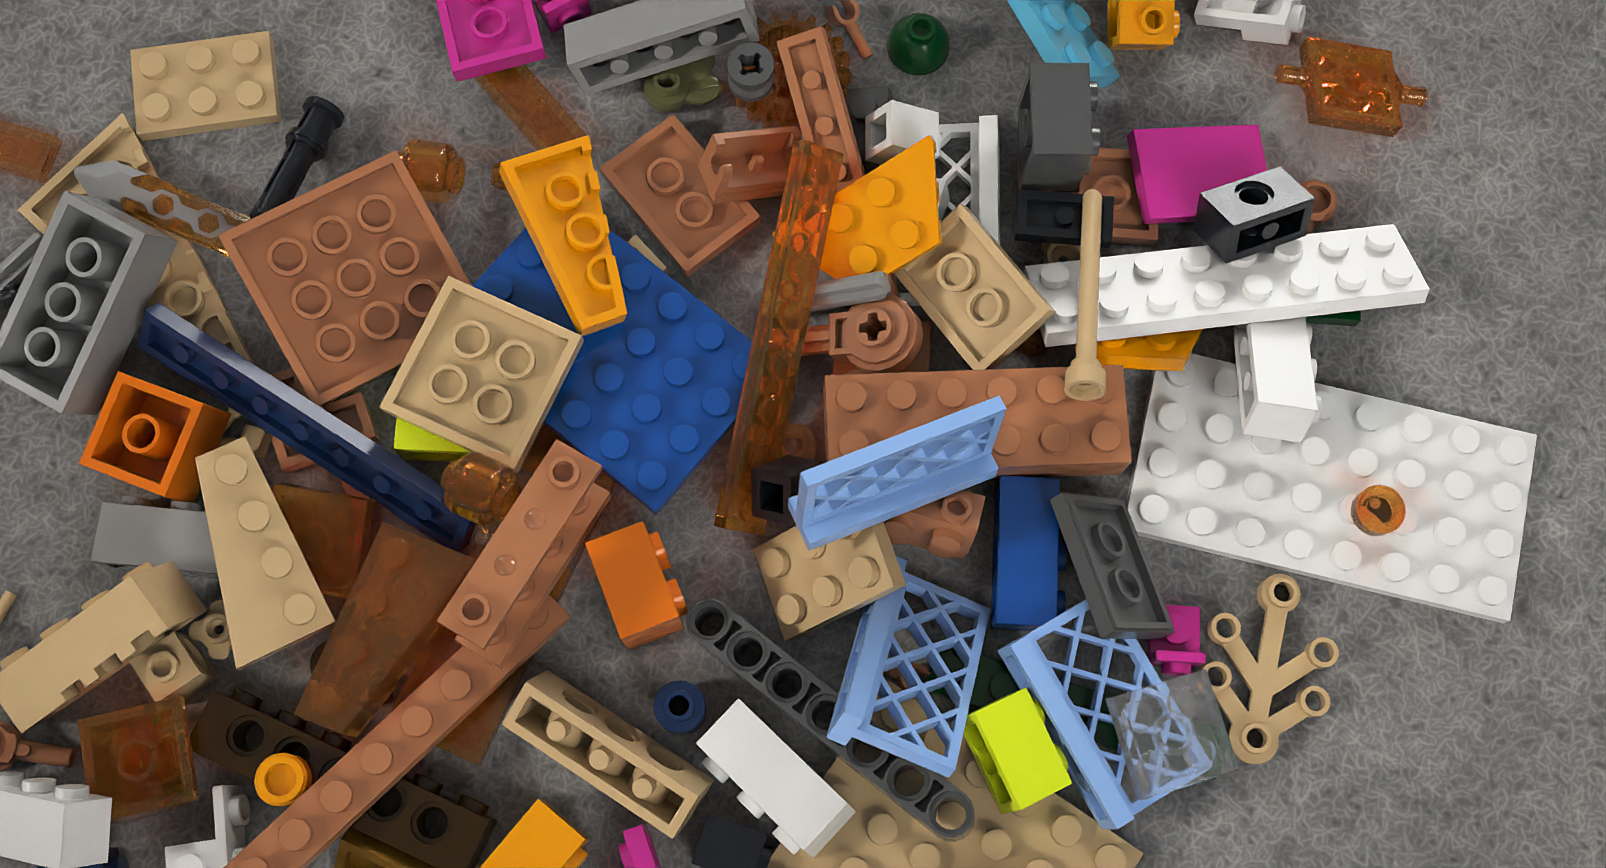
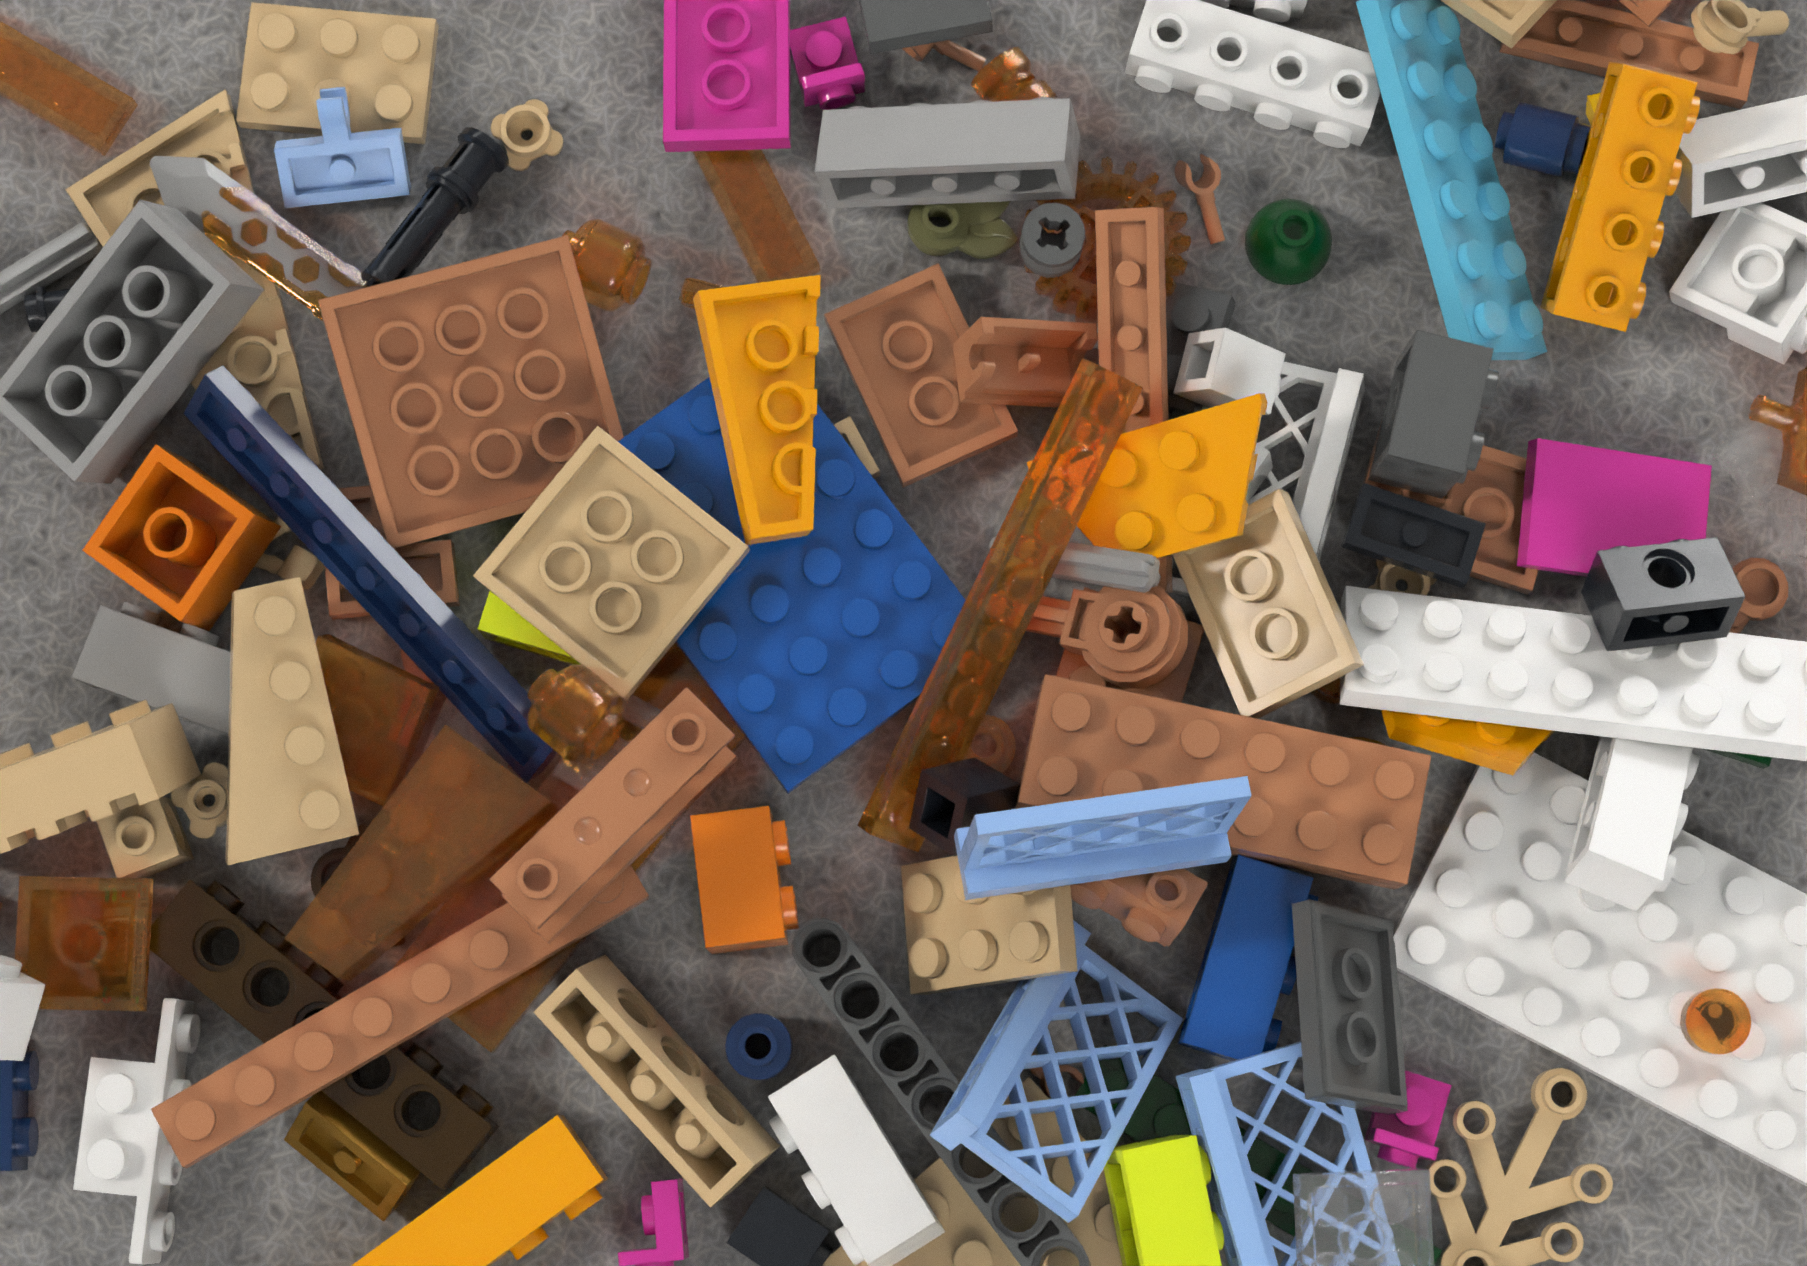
camera: 15 degrees right, 5 degrees up
(219, 144) = (341, 163): none -> light blue plate
(282, 779) = (252, 1012): light orange tile -> none
(347, 85) = (524, 117): none -> tan plate
(1085, 377) = (1375, 762): tan piece -> none

